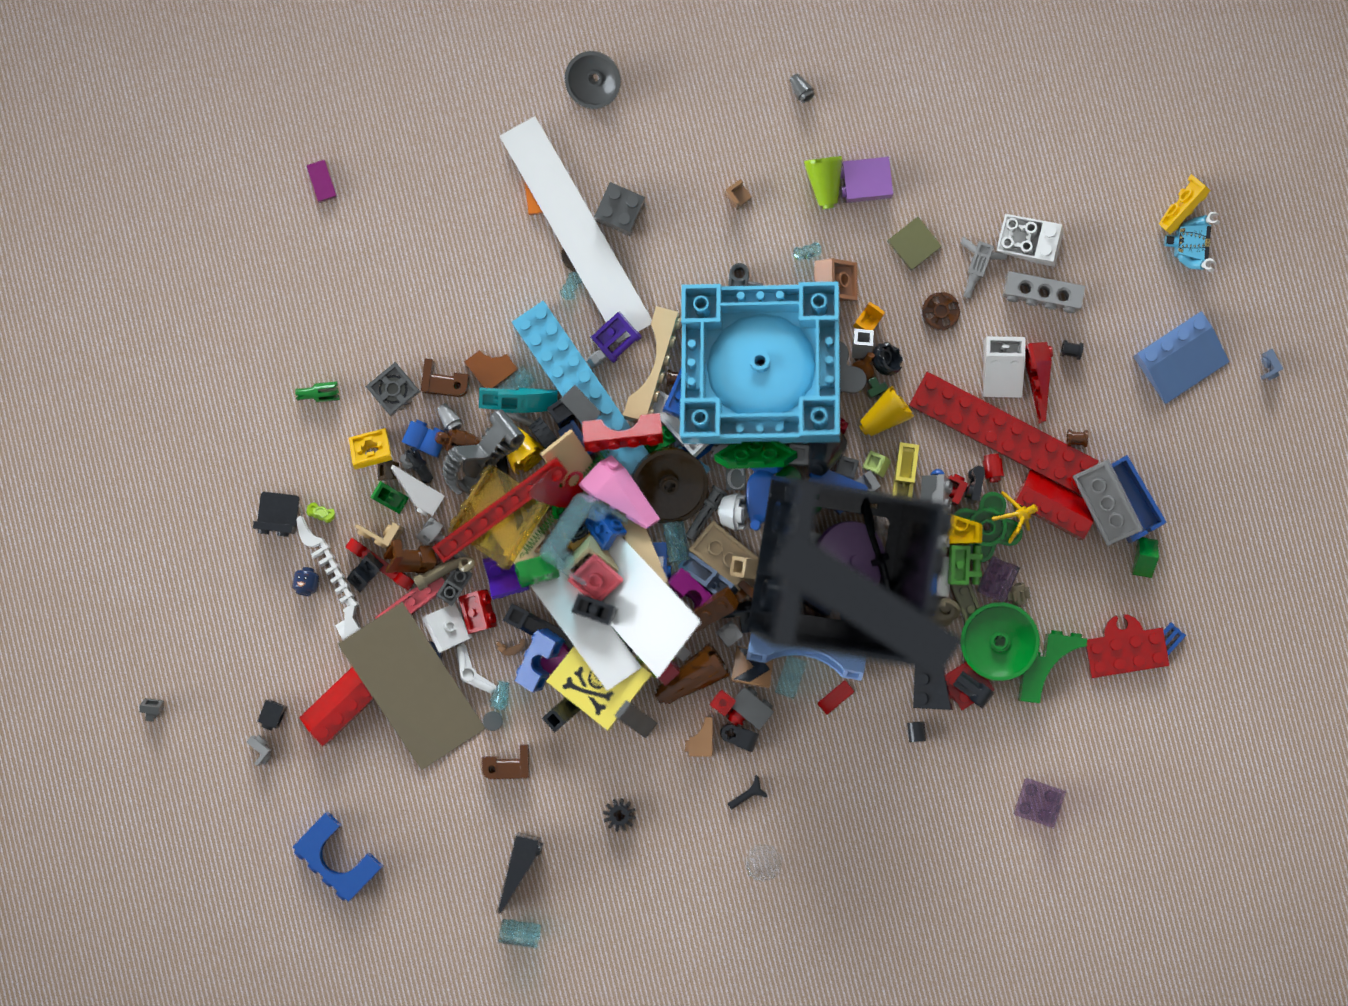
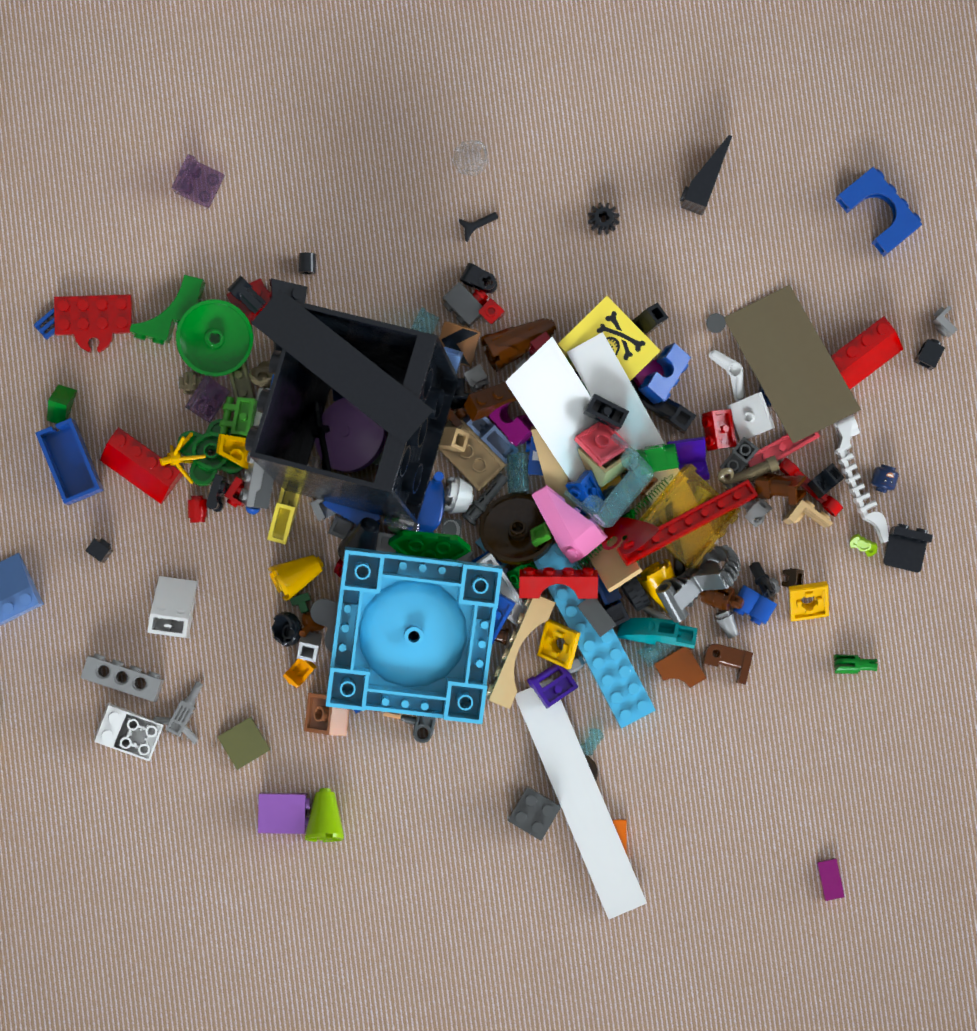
camera: 175 degrees left, 0 degrees up
(389, 497) = (794, 551): green slope -> none
(393, 391) = (779, 658): dark grey piece -> none
(419, 493) = (761, 548): white slope -> none
(500, 696) = (705, 345): clear light blue cone -> none
(508, 768) = (706, 275): reddish brown piece -> none
(511, 650) = (690, 389): medium nougat piece -> none
(519, 933) = (711, 117): clear light blue bracket -> none
(583, 86) = (555, 943): dark grey dish -> none
(624, 371) = (548, 646): none -> yellow piece
(635, 719) = (577, 305): dark grey tile -> none
(646, 480) = (540, 534): none -> bright green tile
(701, 743) = (516, 277): medium nougat arch -> none
(738, 194) = (413, 813): medium nougat panel -> none
(786, 473) = (400, 524): none -> clear tile
(802, 89) = (336, 916): dark grey cone -> none
(807, 251) = (352, 747): clear light blue piece -> none
(835, 697) = (381, 306): red sticker -> none
(876, 463) = (311, 527): yellowish green slope -> none
(940, 310) = (227, 672): reddish brown piece -> none
(1000, 431) = (182, 543): red plate -> none
(1038, 368) = (138, 599): red wedge -> none
(1071, 349) = (103, 617): black bush -> none
(1077, 438) = (110, 528): reddish brown bush -> none
(1085, 415) = (99, 549): none -> black plate
(1108, 502) = (89, 458): light grey tile -> none

